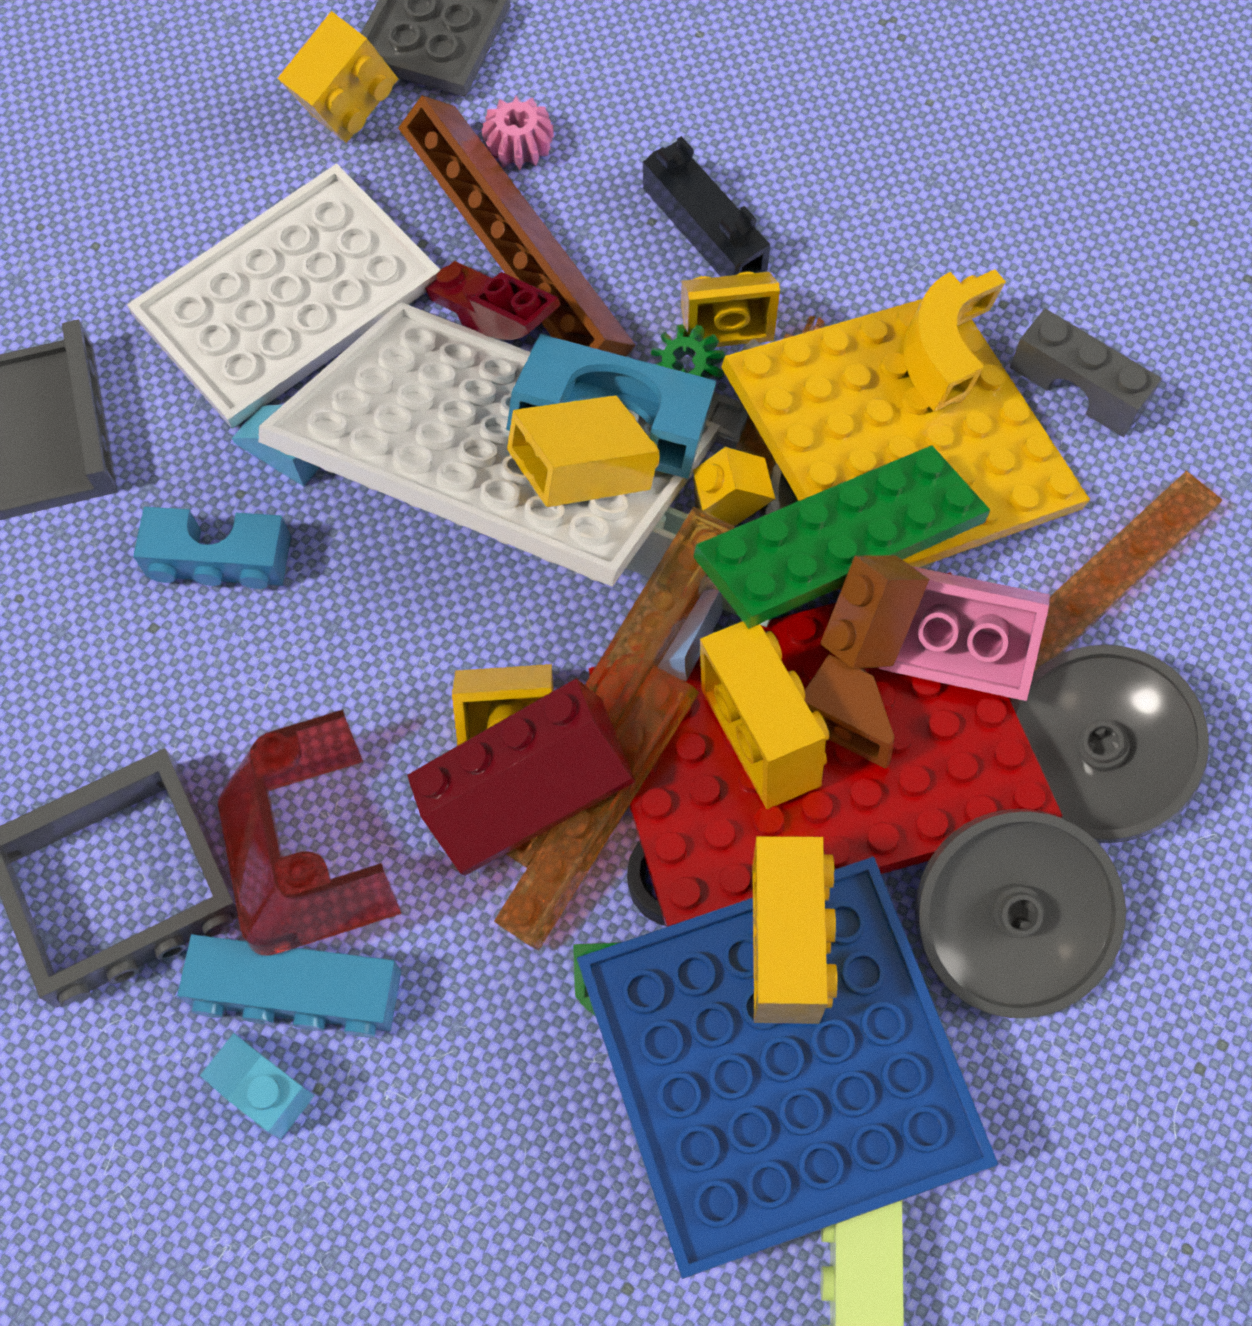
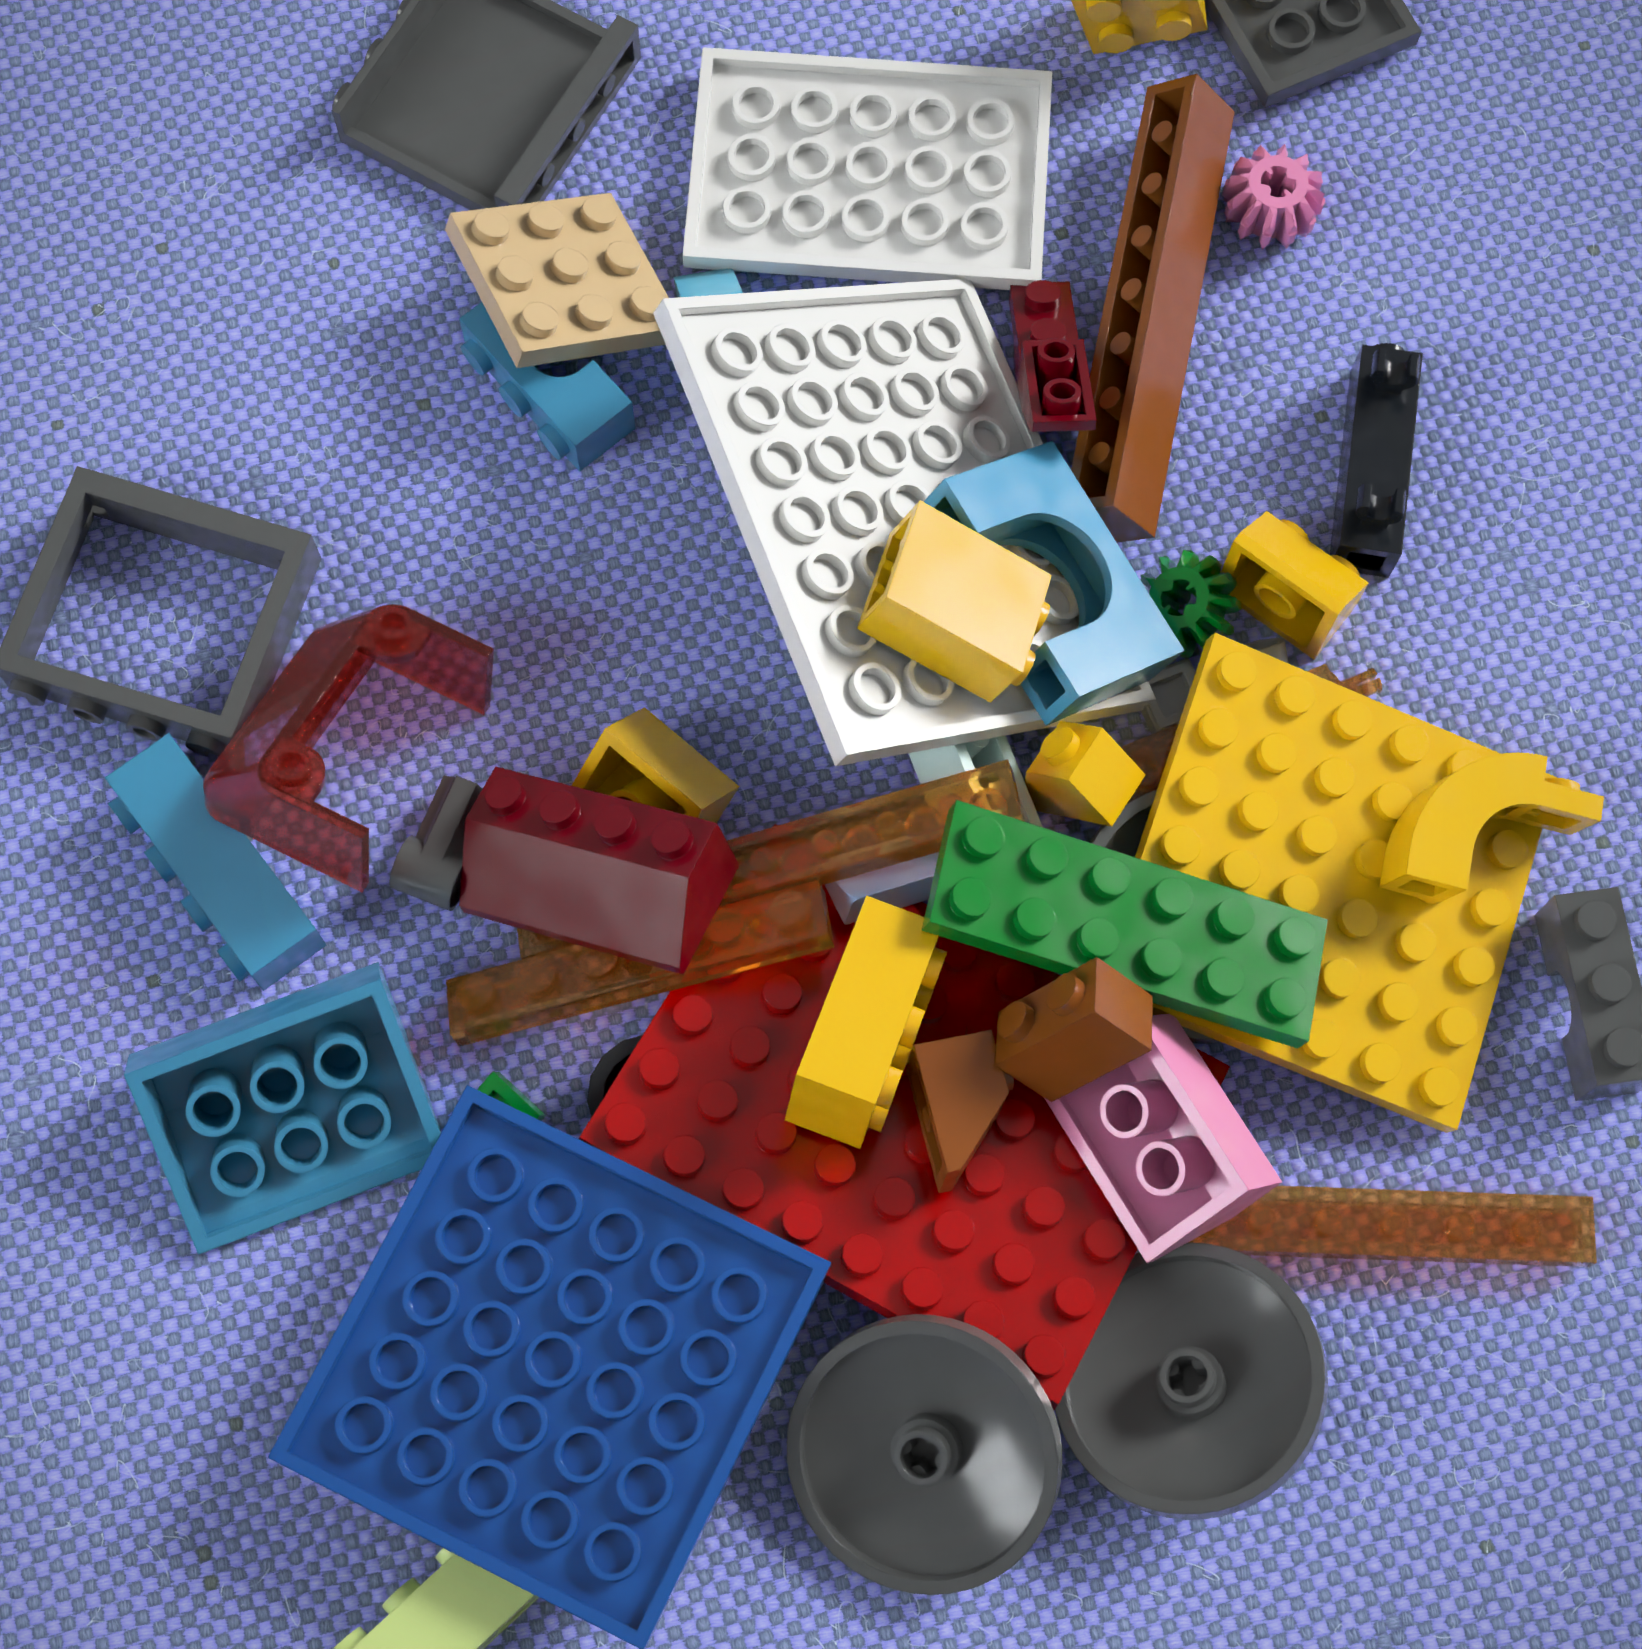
camera: 40 degrees right, 5 degrees up
(172, 485) = (560, 278): none -> tan plate
(256, 1086) = (99, 927): medium azure slope -> none
(419, 858) = (432, 861): none -> dark grey piece
(475, 1078) = (285, 1107): none -> dark azure slope
(792, 930) = (662, 1249): yellow brick -> none

